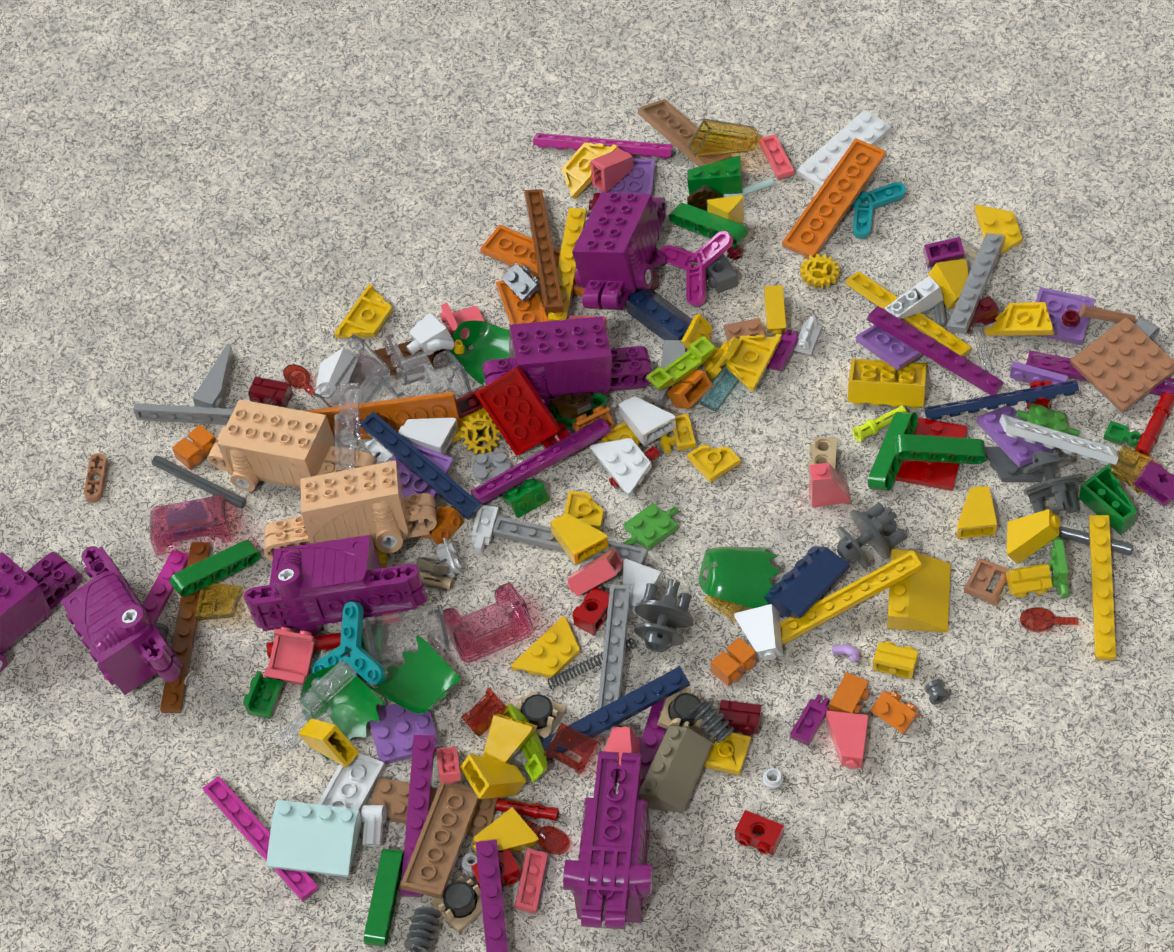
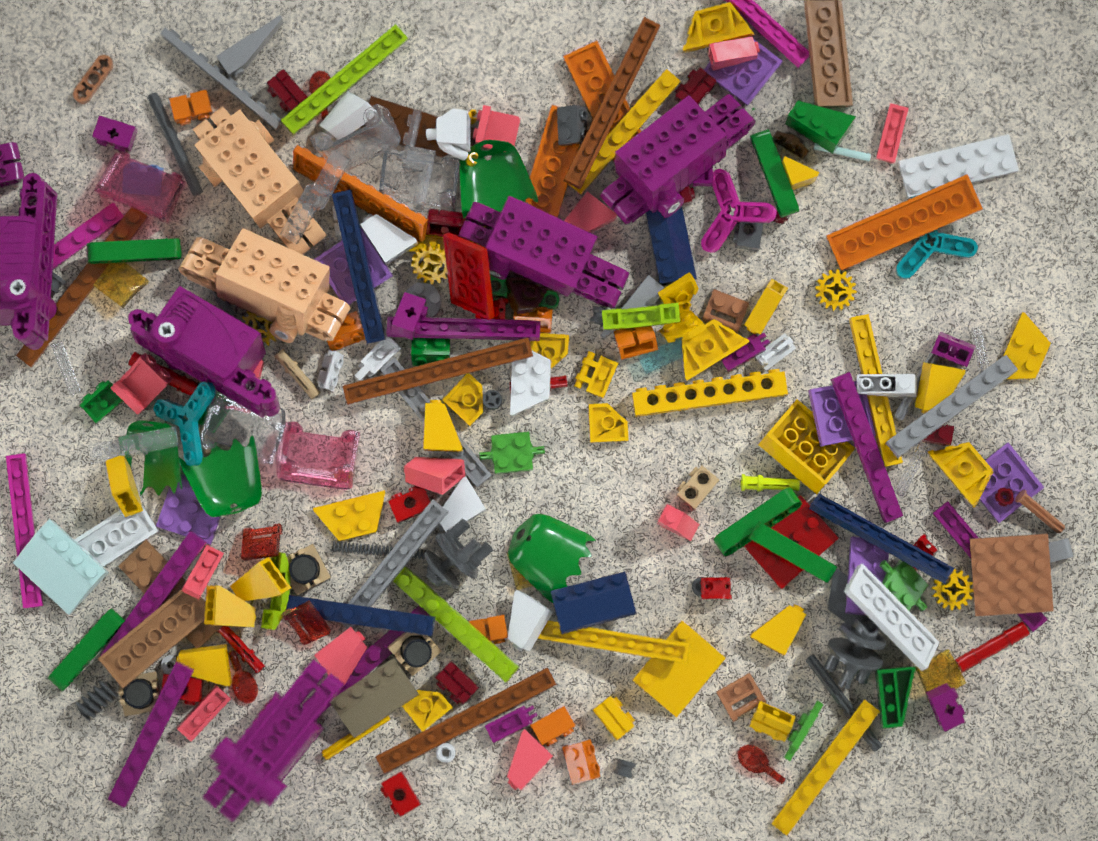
camera: 30 degrees right, 30 degrees up
(139, 500) = (107, 126): none -> magenta brick
(313, 356) = (344, 80): none -> lime plate
(365, 316) = (420, 61): yellow wing -> none
(373, 819) = (117, 579): white piece -> none
(431, 565) = (310, 370): dark tan plate -> none
(489, 473) = (402, 323): none -> magenta brick
(541, 499) = (437, 371): none -> dark orange plate
(603, 494) = (493, 398): none -> dark grey wheel
(646, 419) = (575, 349): white slope -> none
(647, 392) = (597, 316): none -> dark grey wheel
(680, 820) = (349, 740): none -> yellow axle
(705, 667) = (456, 624): none -> lime plate
(712, 720) = (427, 680): dark grey piece -> none
(723, 138) = (854, 87): clear yellow slope -> none
(769, 743) = (465, 720): none -> dark orange plate
(778, 392) = (777, 389): none -> yellow brick
(847, 649) = (585, 680): lavender arm -> none
(871, 526) = (677, 603): dark grey piece -> none
(903, 515) = (716, 588): none -> red piece
(1028, 374) = (933, 533): medium lavender plate -> none
(1030, 534) = (803, 683): yellow slope -> none
(1088, 405) = (953, 579): none -> yellow gear
(1119, 433) = (955, 634): green plate -> none

